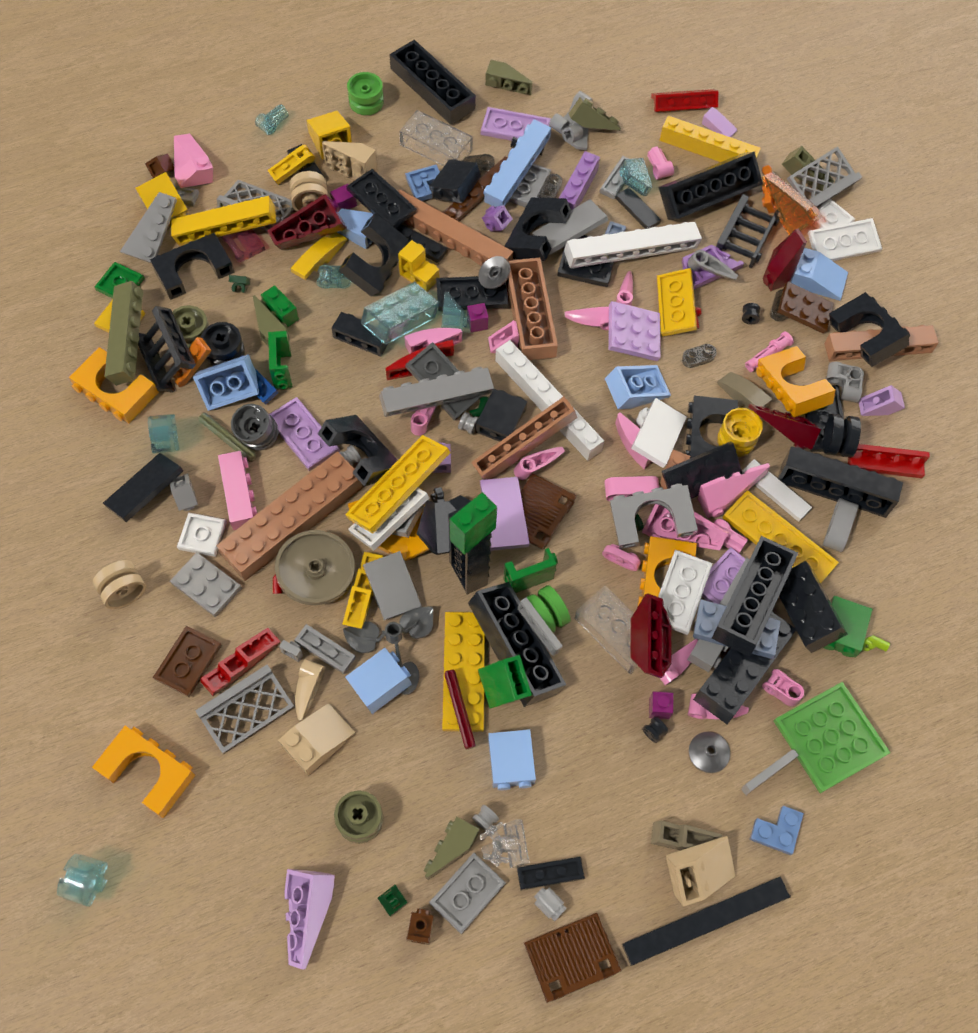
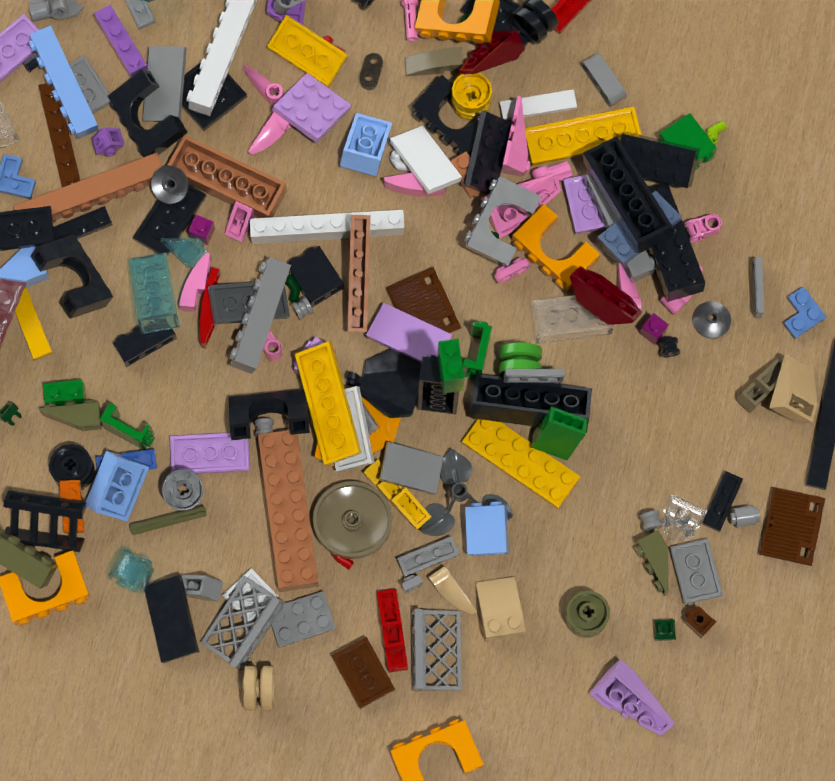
camera: 55 degrees left, 10 degrees up
(170, 553) = (258, 628): none -> light grey fence
(191, 322) = (32, 475): olive wheel -> none
(236, 488) = (230, 541): bright pink brick -> none
(332, 277) = (62, 327): clear light blue piece -> none
(415, 267) = (112, 247): yellow brick -> none
(455, 180) = (39, 150): black brick -> none
(460, 710) = (554, 482): dark red axle -> none
(484, 161) = (28, 115): clear smoke plate -> none
(511, 759) = (619, 471): light blue brick -> none
(536, 461) = (381, 280): bright pink piece -> none
(549, 190) = (105, 71): clear smoke plate -> none
(614, 228) = (195, 48): sand blue plate -> none
(628, 485) = (457, 218): bright pink beam -> none
(638, 208) = (183, 10): tile -> none
(684, 589) = (576, 242): white tile -> none
(831, 737) = (762, 221): bright green plate -> none
(838, 480) = (569, 53): black brick -> none

